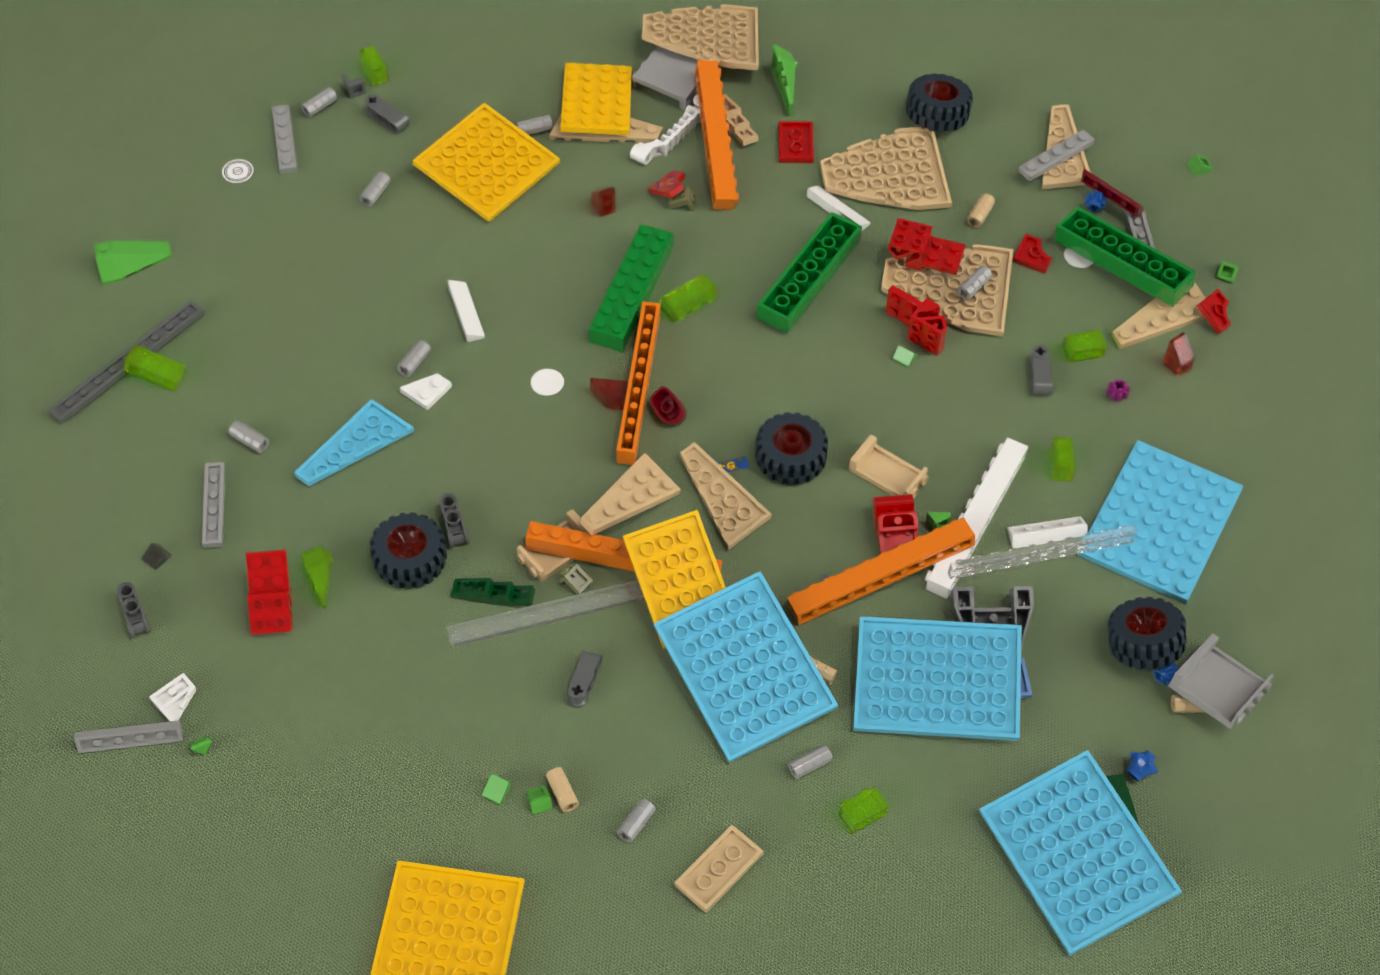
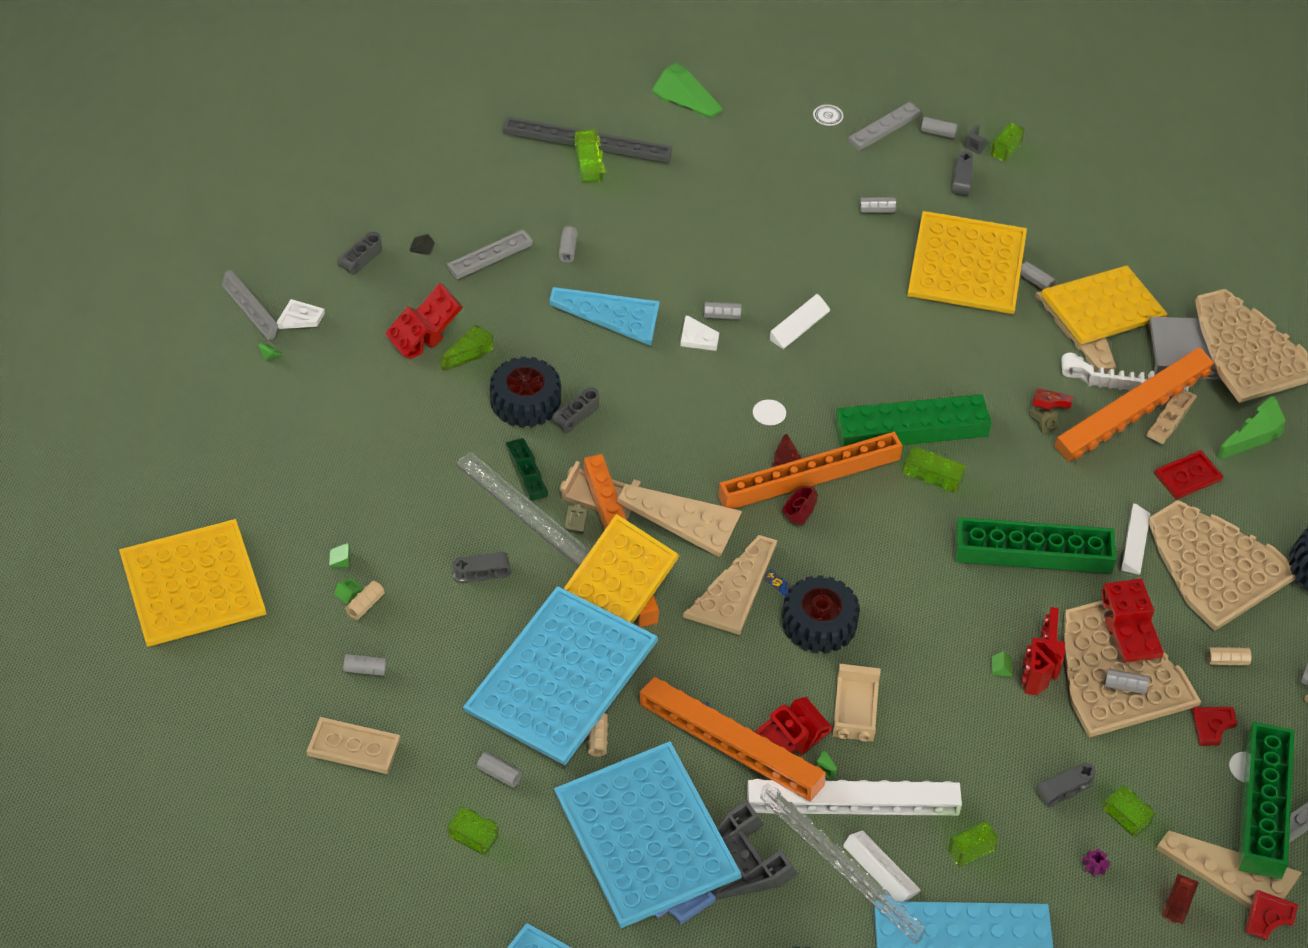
camera: 60 degrees right, 5 degrees down
(604, 200) = (991, 360): clear red slope -> none

